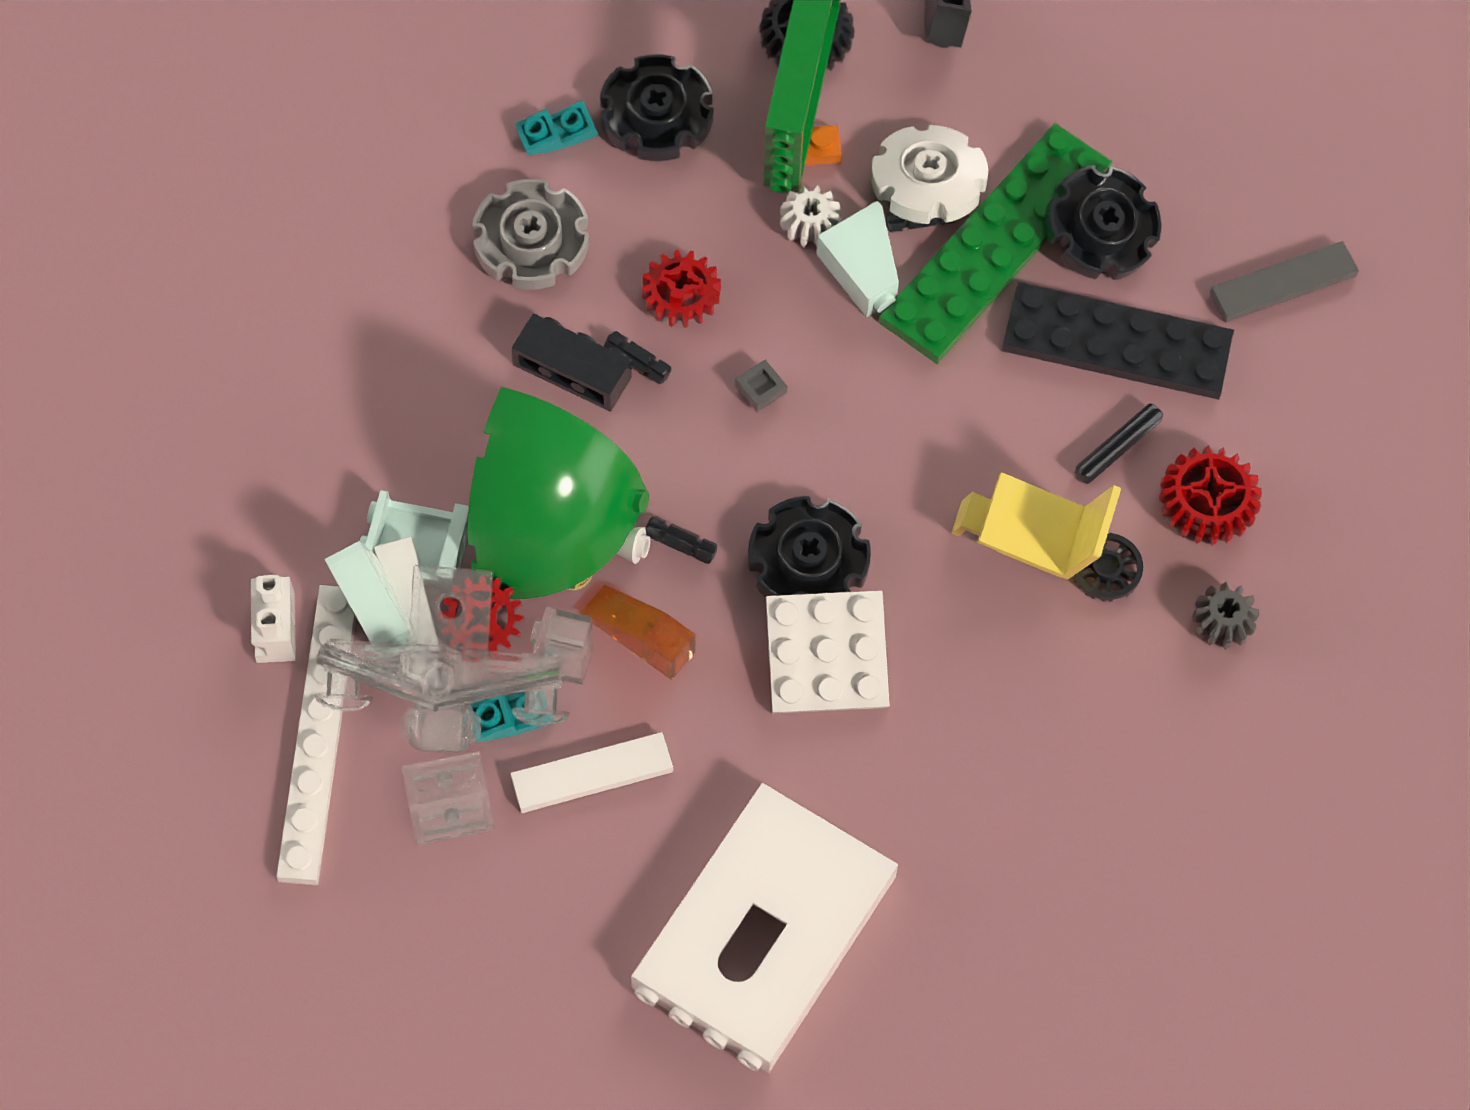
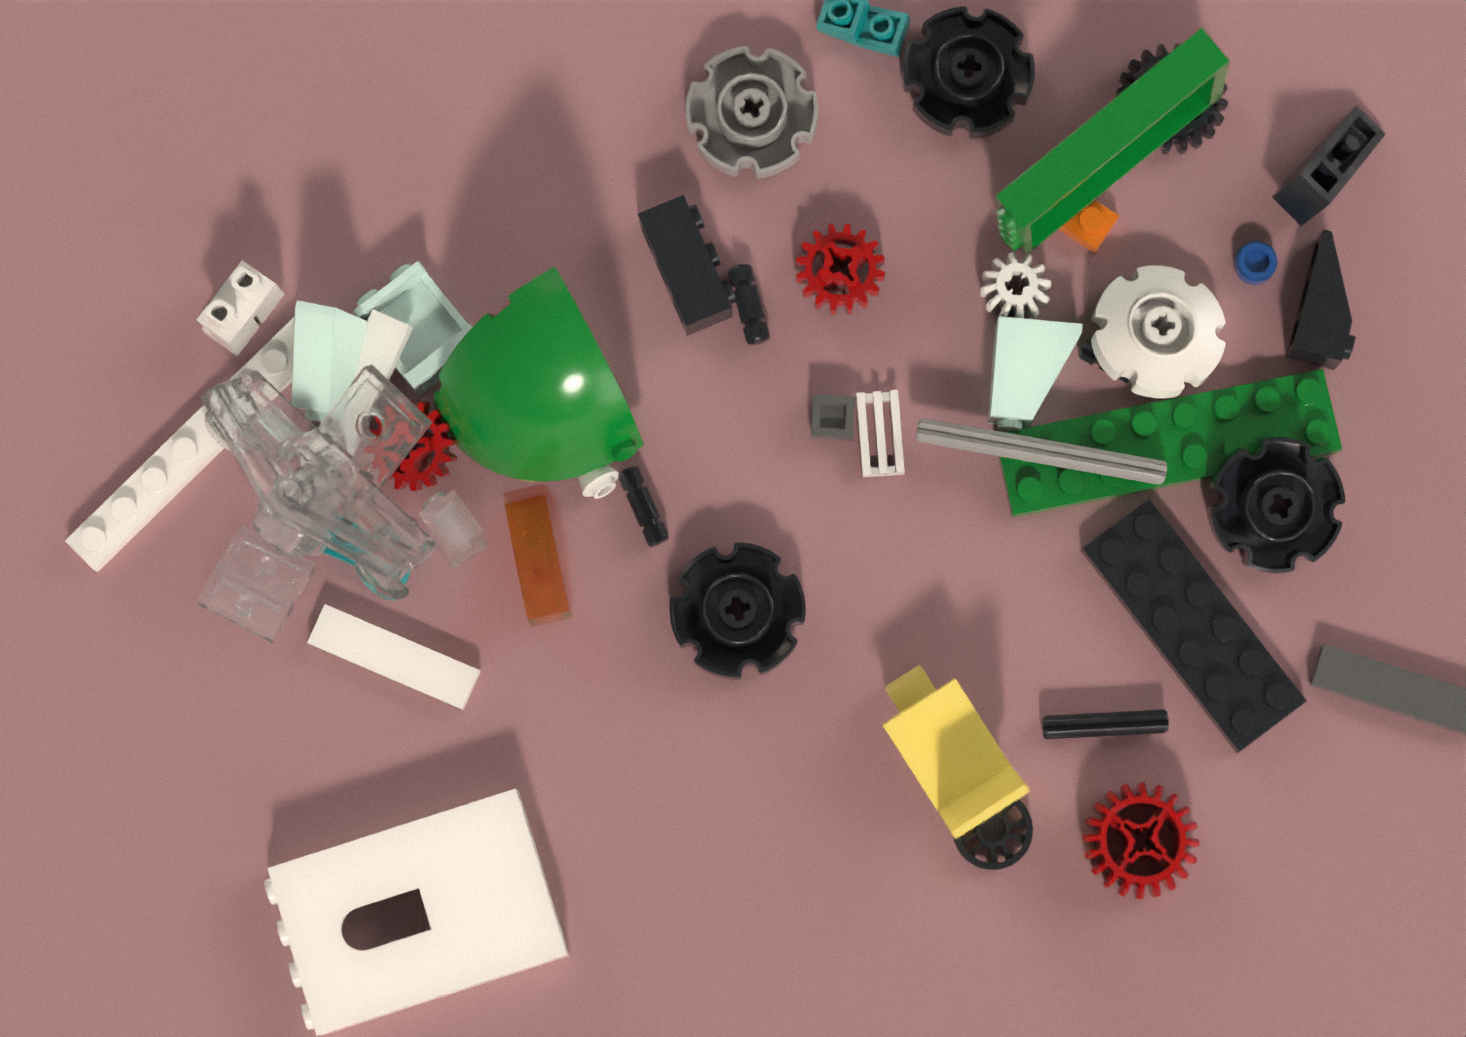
camera: 45 degrees right, 15 degrees up
(812, 366) = (877, 399): none -> white tile
(827, 652) = (675, 713): white plate -> none
(921, 299) = (1041, 451): none -> light grey axle
(951, 92) = (1255, 262): none -> blue tile
(1023, 86) = (1323, 314): none -> black slope
(1228, 602) = (1055, 975): dark grey gear -> none

